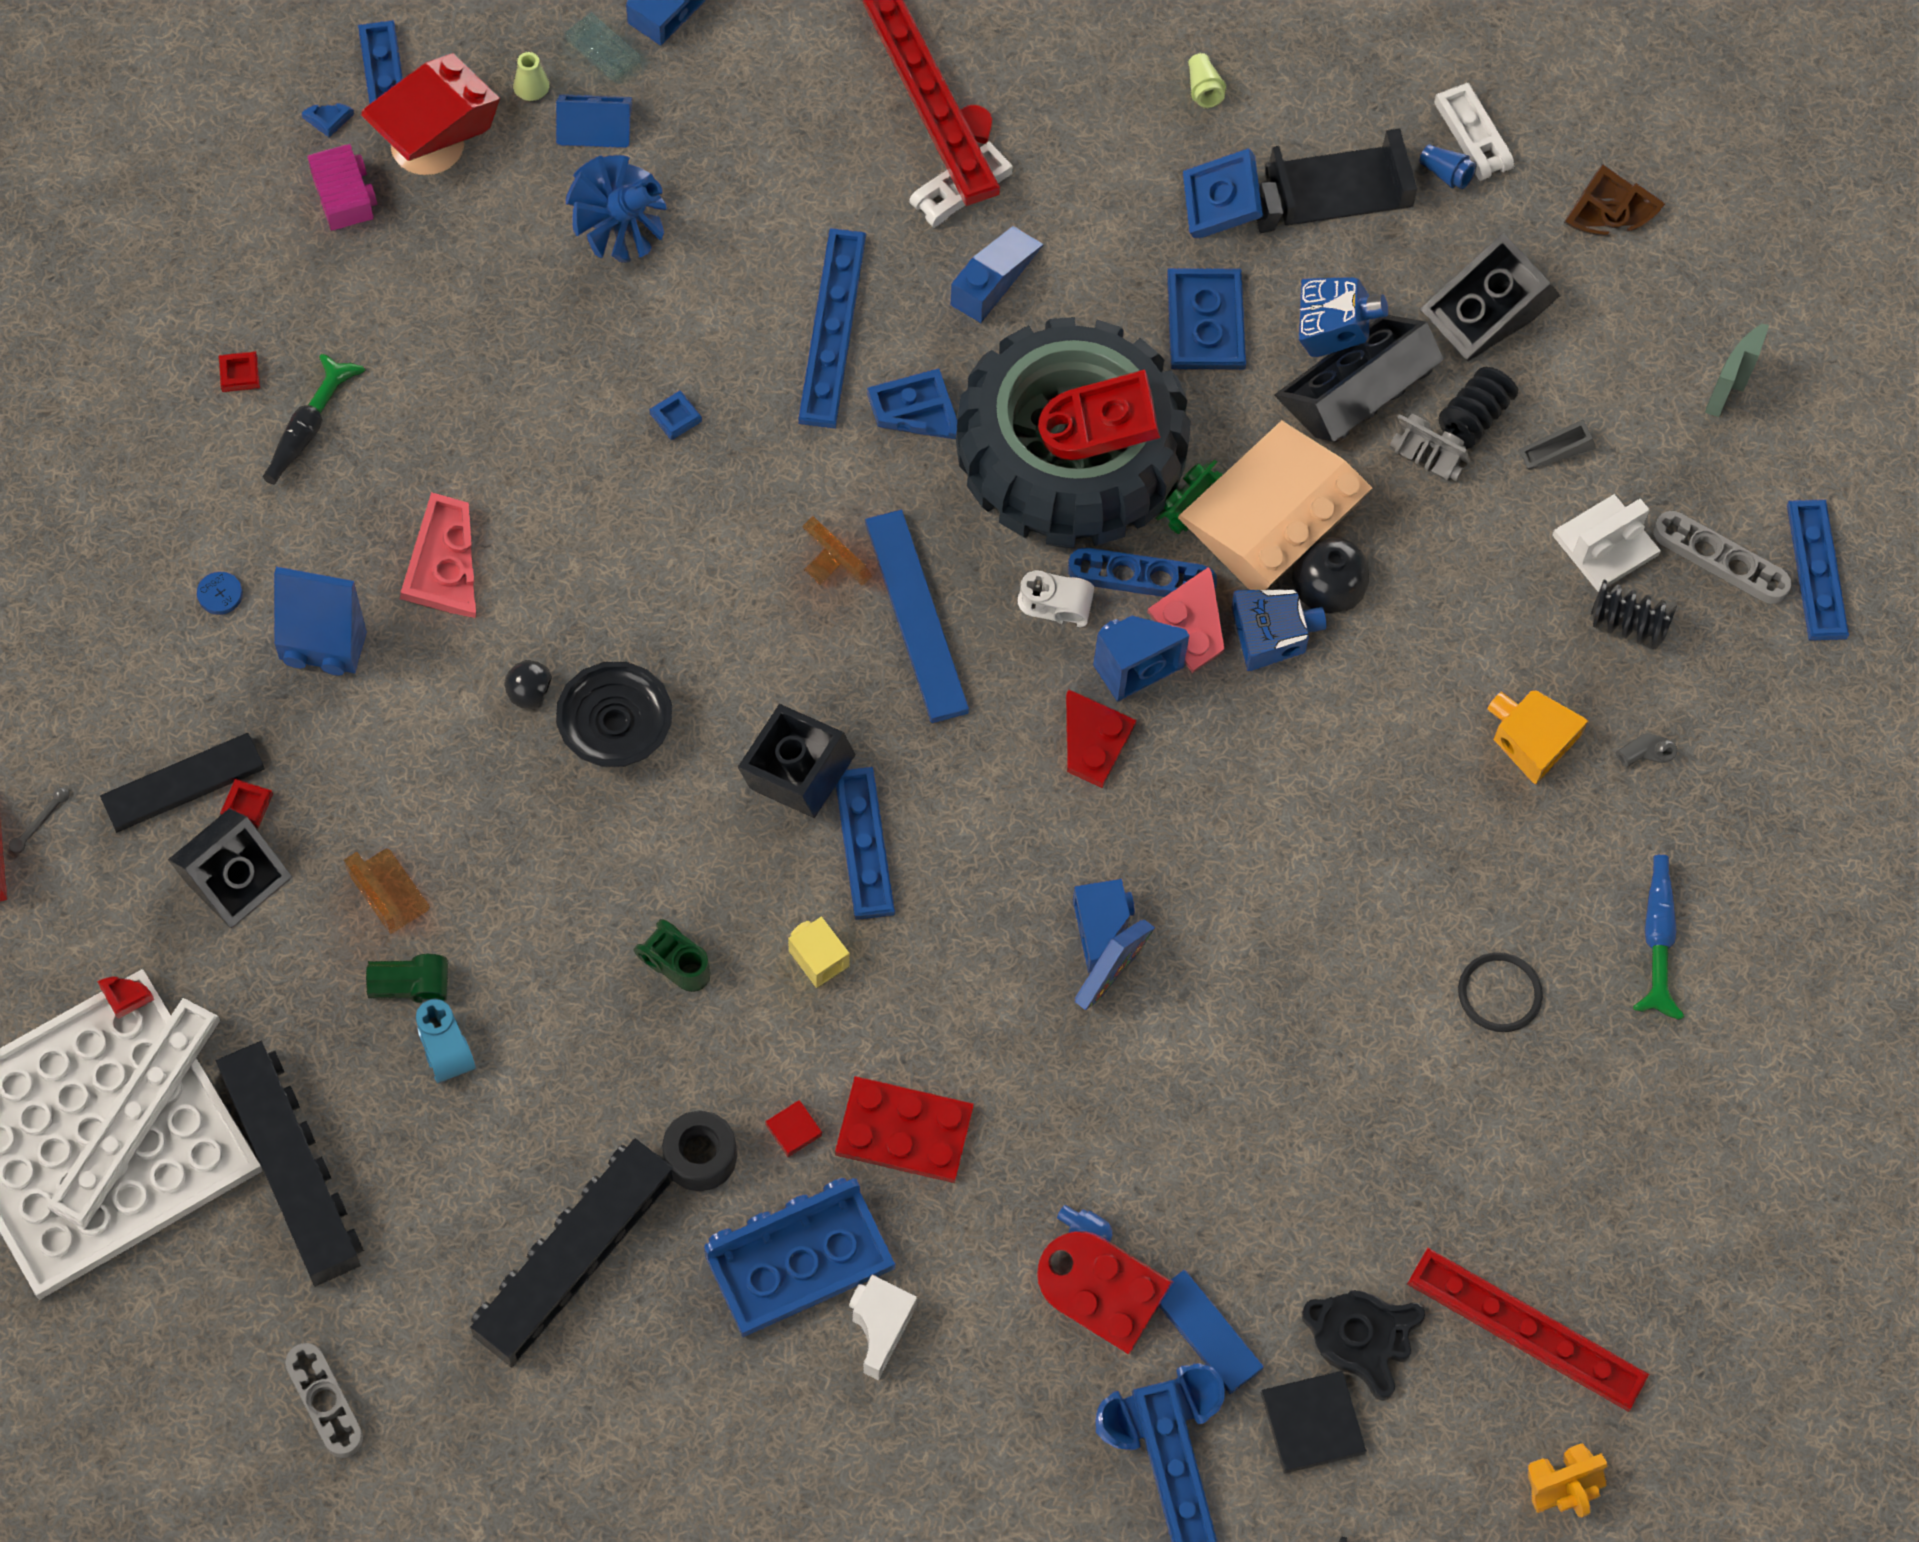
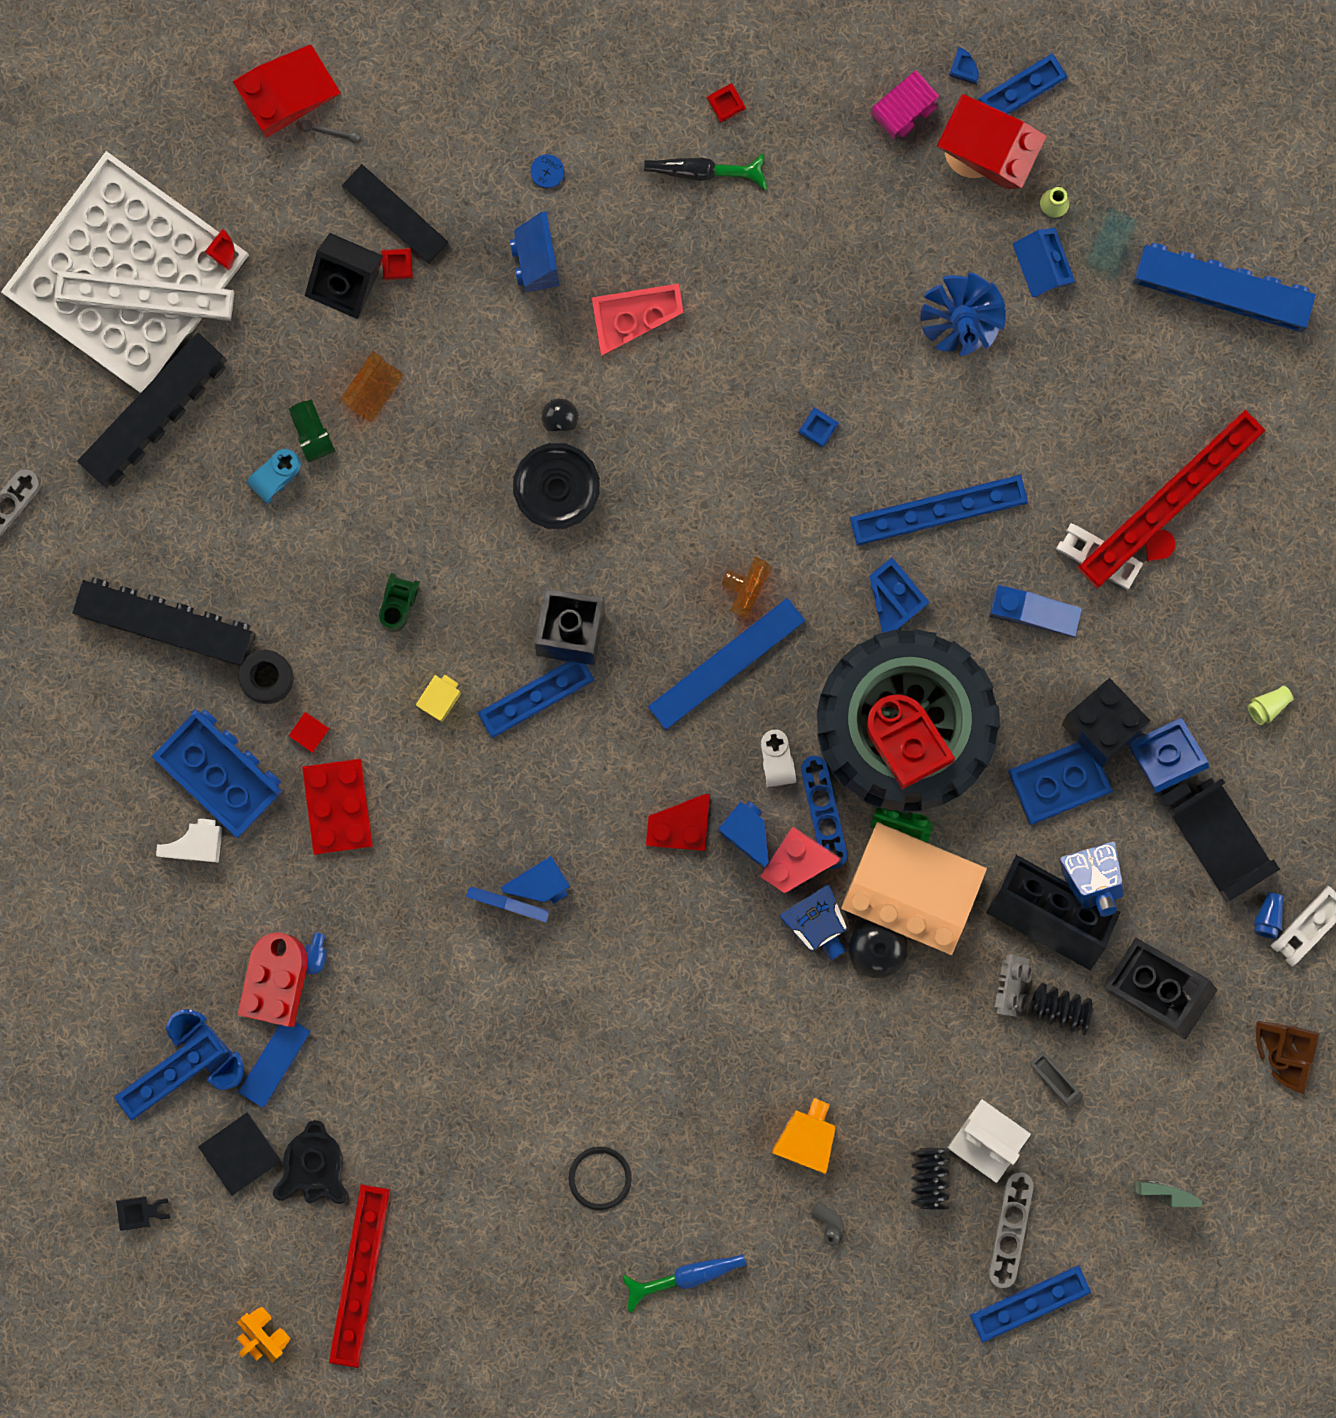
camera: 75 degrees right, 20 degrees up
(1159, 238) = (1106, 722): none -> black brick

